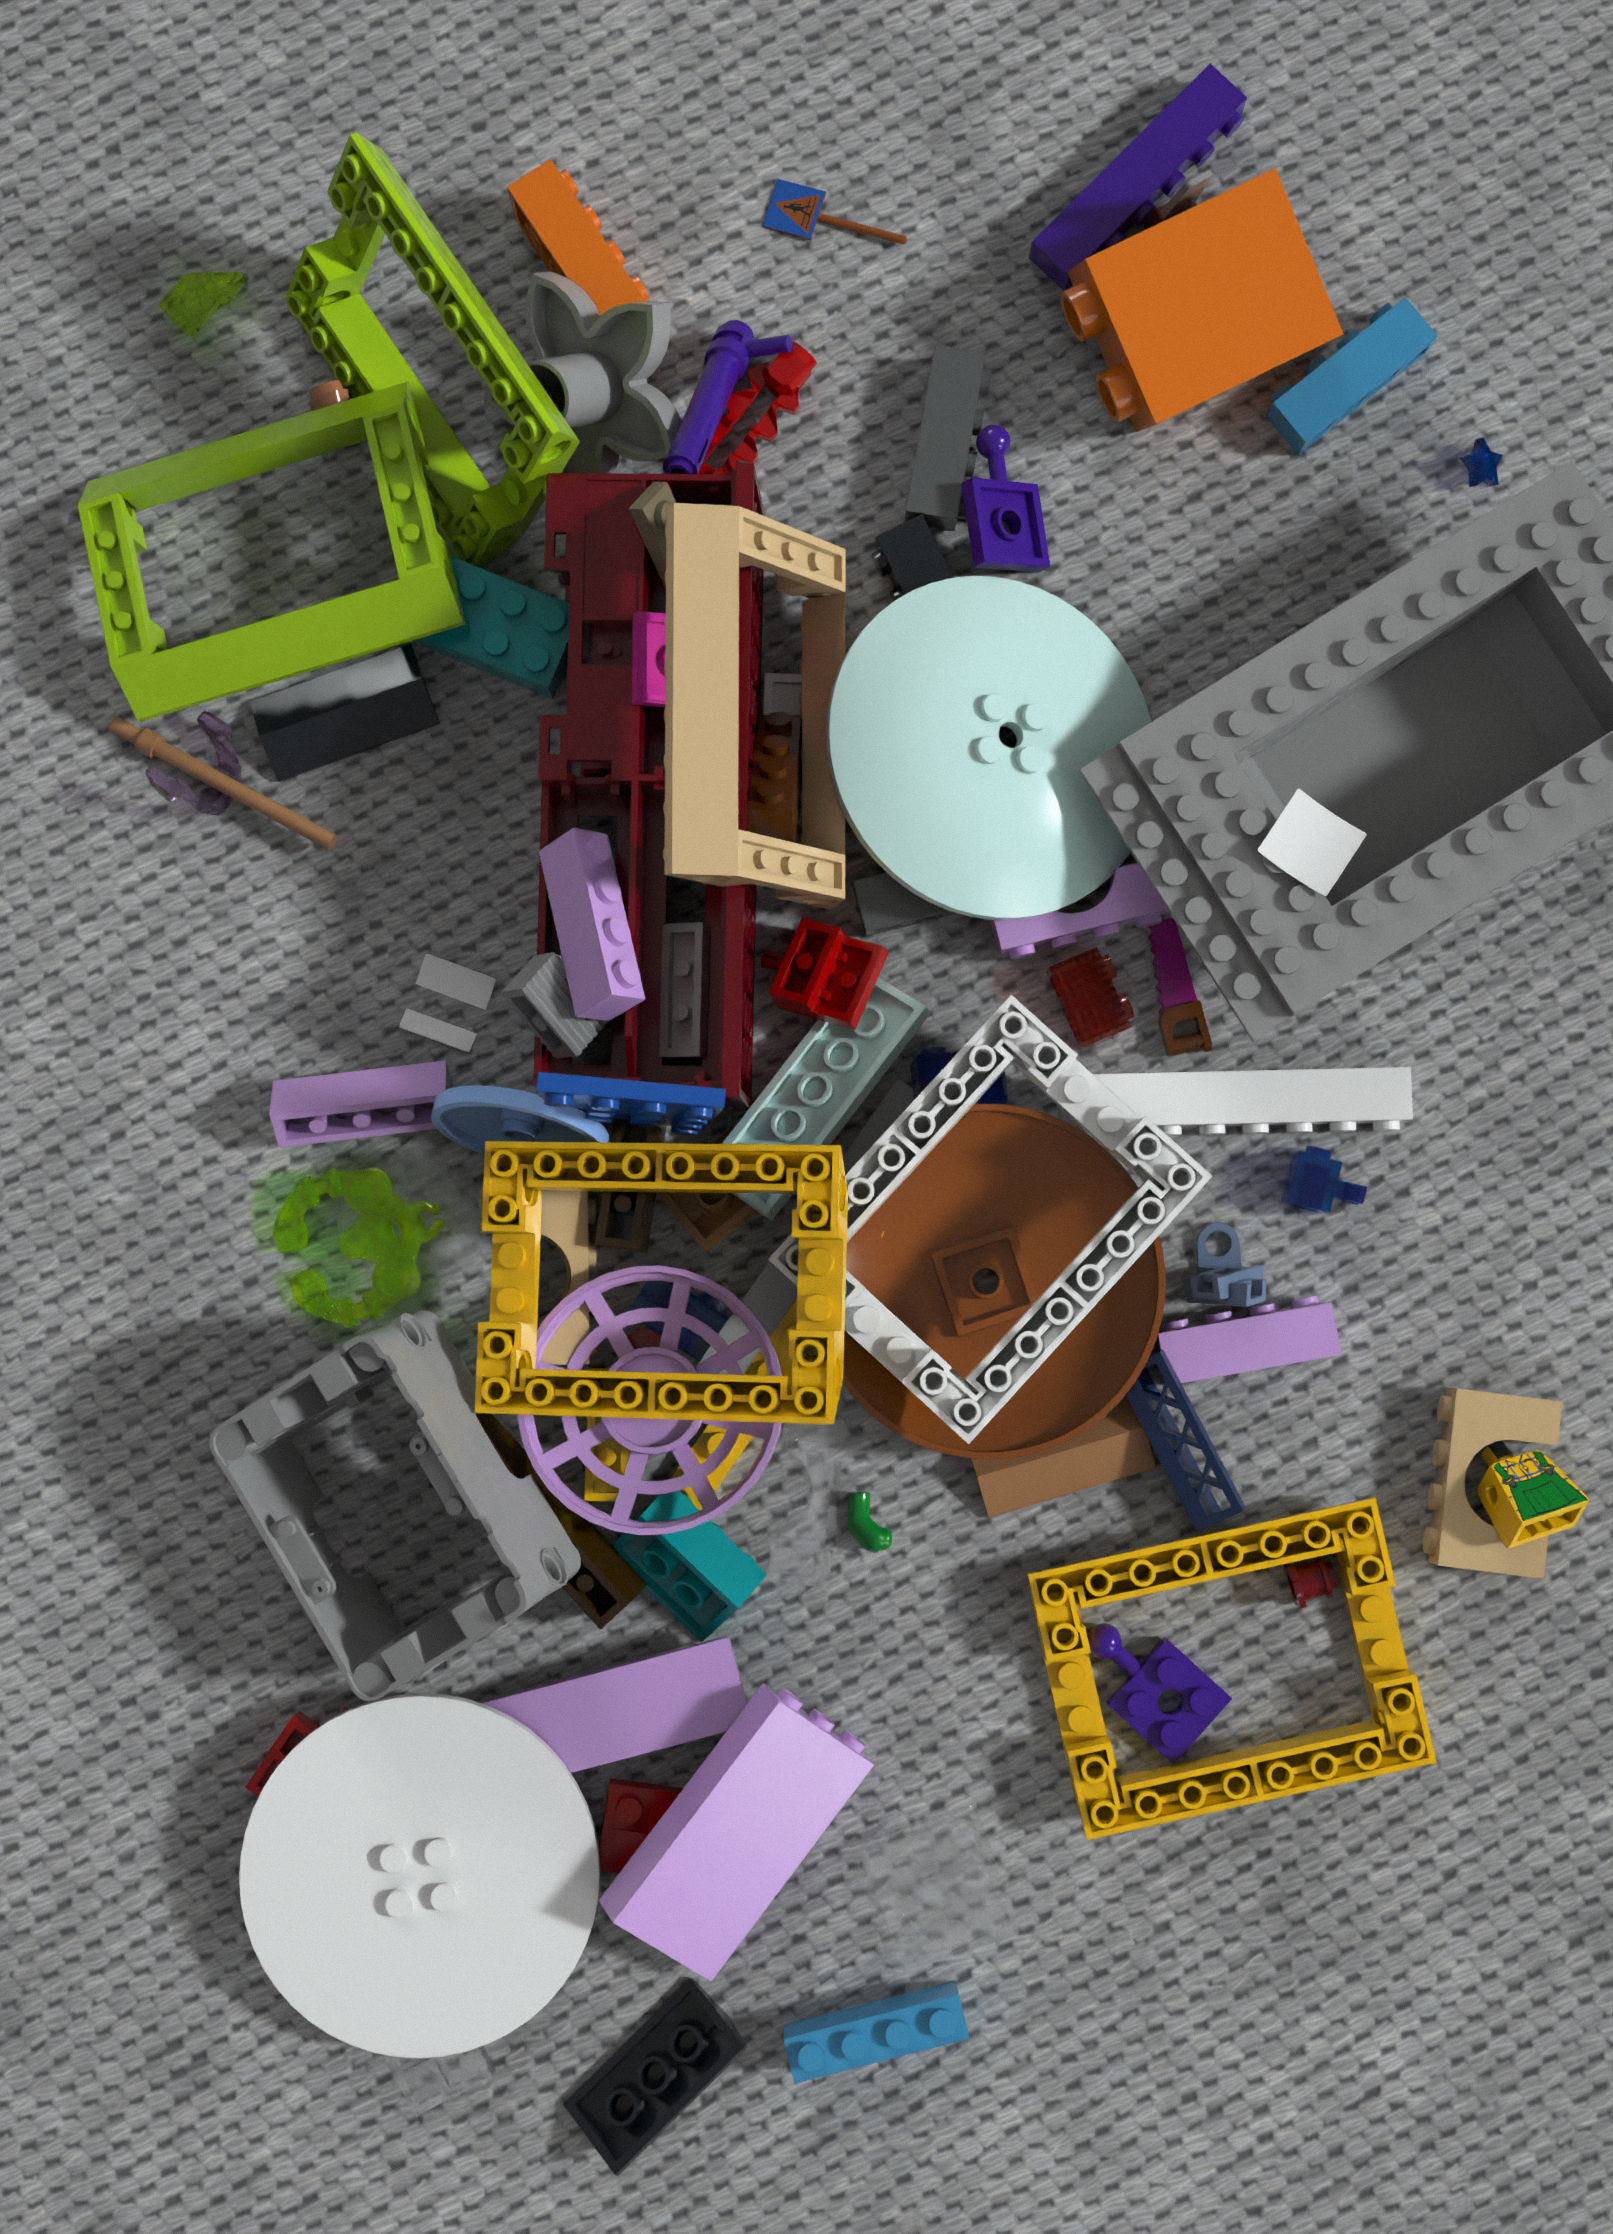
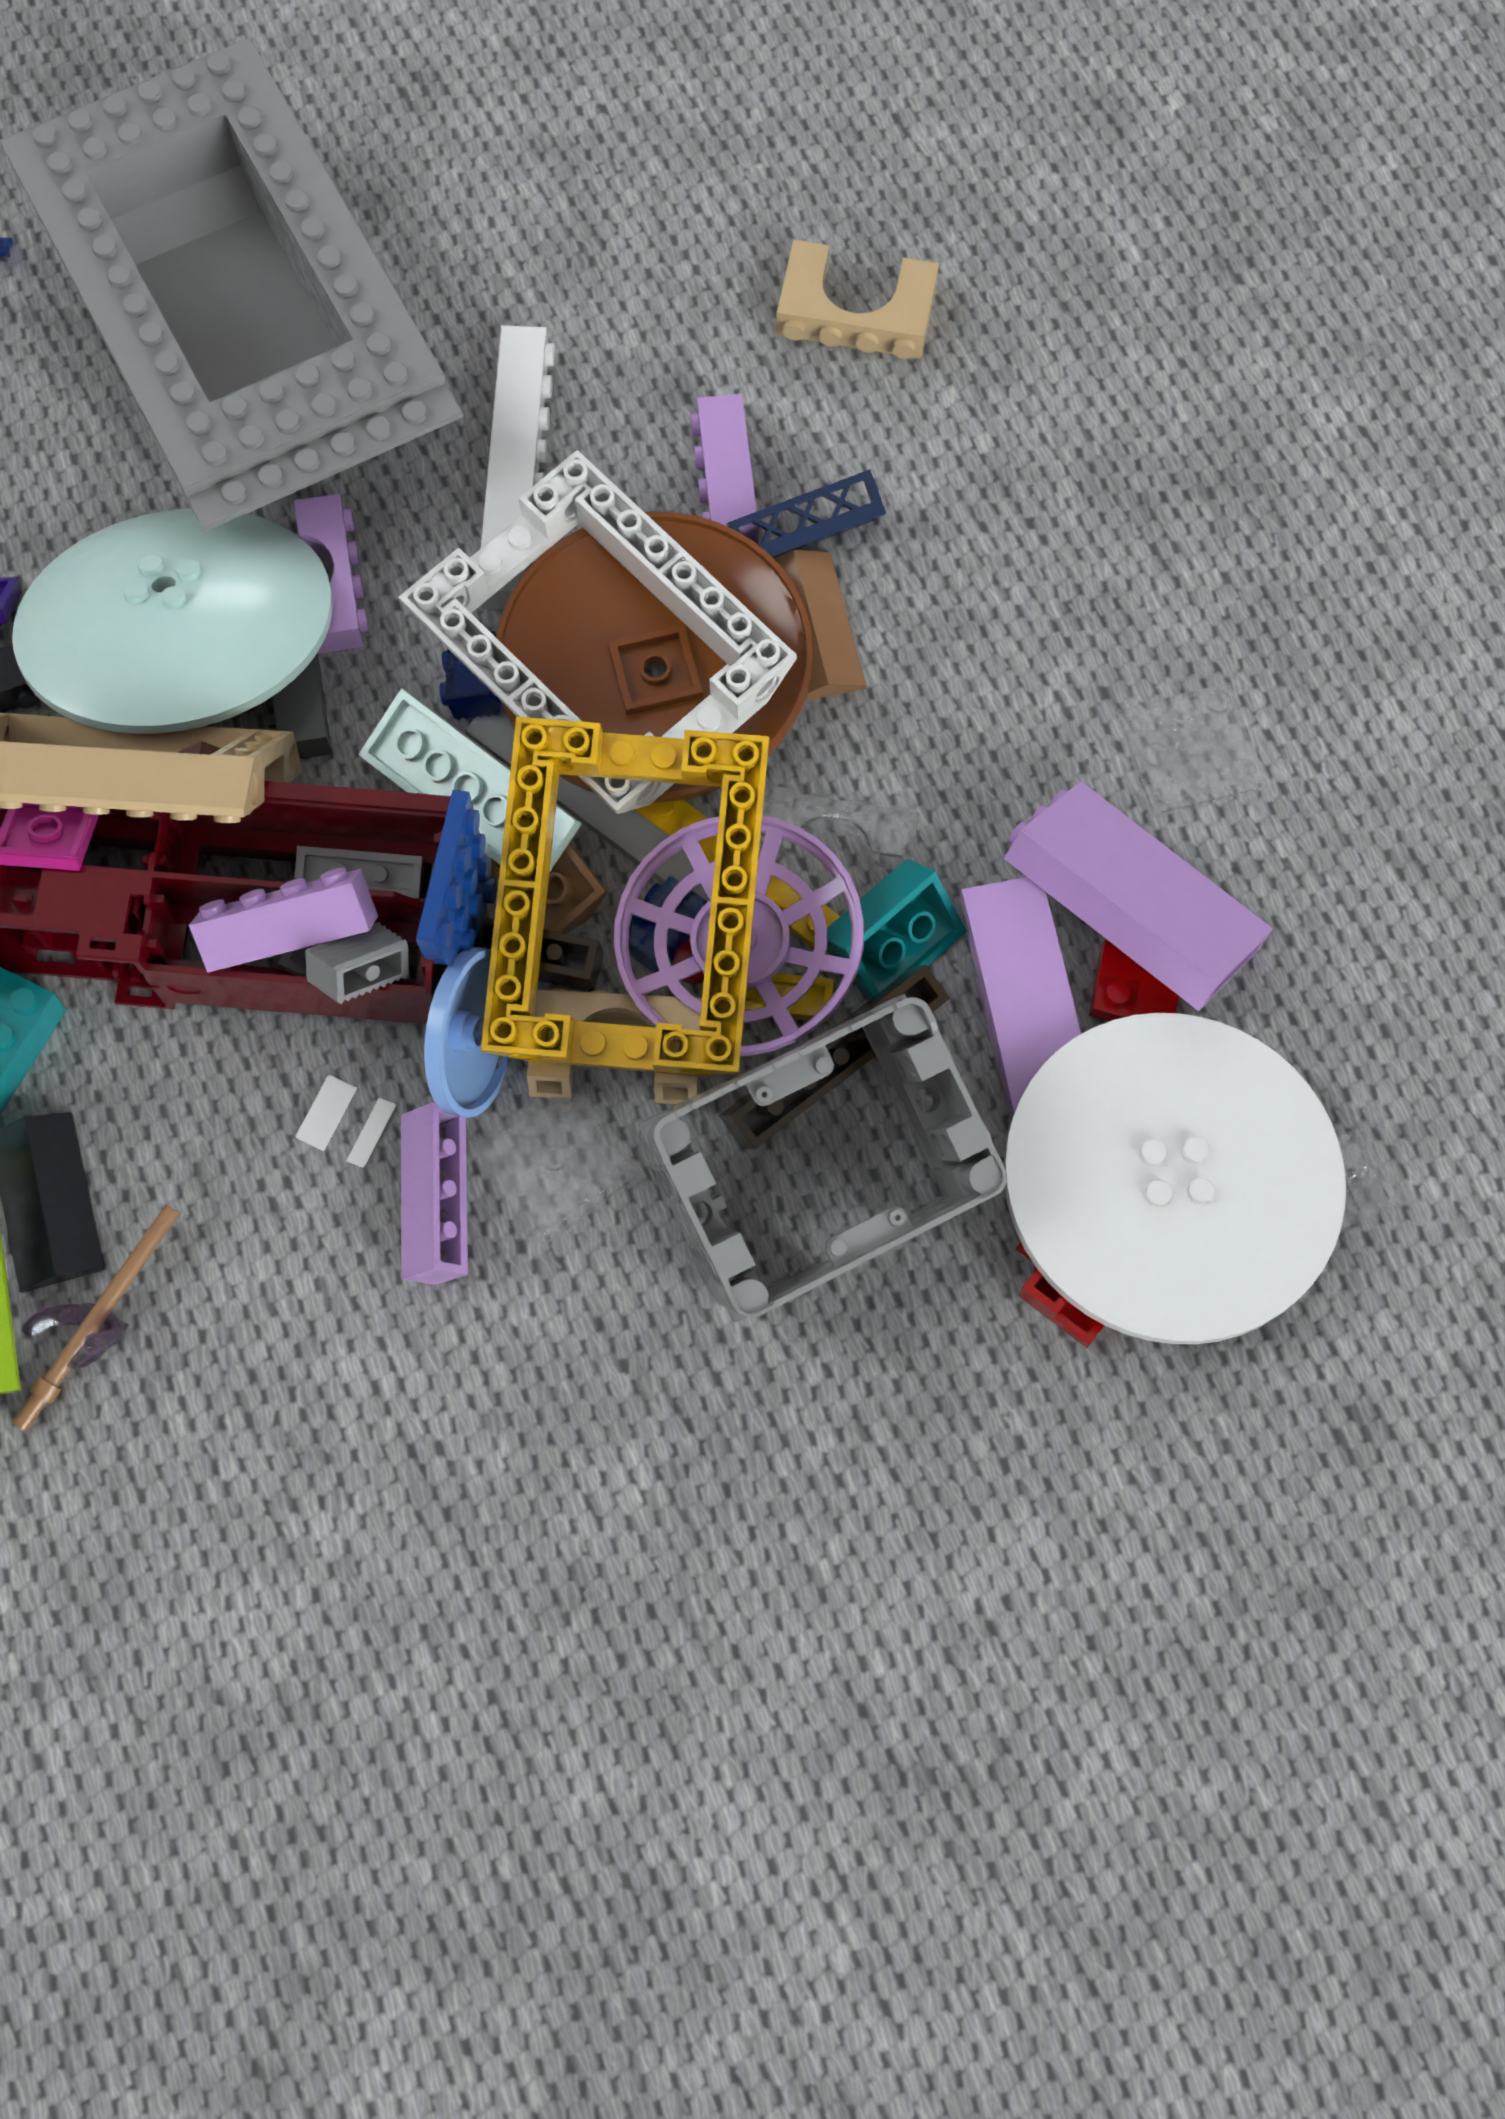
camera: 90 degrees left, 15 degrees down
(368, 1238) = (566, 1192): clear neon green piece -> none
(655, 2075) = (1360, 988): black slope -> none
(825, 974) = (364, 761): red plate -> none
(862, 1527) = (868, 786): green arm -> none
(875, 2032) = (1317, 799): dark azure brick -> none
(1089, 997) = (403, 565): clear red brick -> none
(1138, 1695) = (1026, 577): dark purple plate -> none
(1176, 991) = (417, 507): piece -> none
(1222, 1277) = (664, 490): sand blue piece -> none
(1310, 1580) = (933, 439): dark red brick -> none
(1311, 843) = (296, 346): white sticker -> none
(1314, 1182) = (594, 409): clear blue brick -> none
(1388, 1743) = (1037, 382): yellow slope -> none
(1527, 1495) = (869, 269): torso -> none

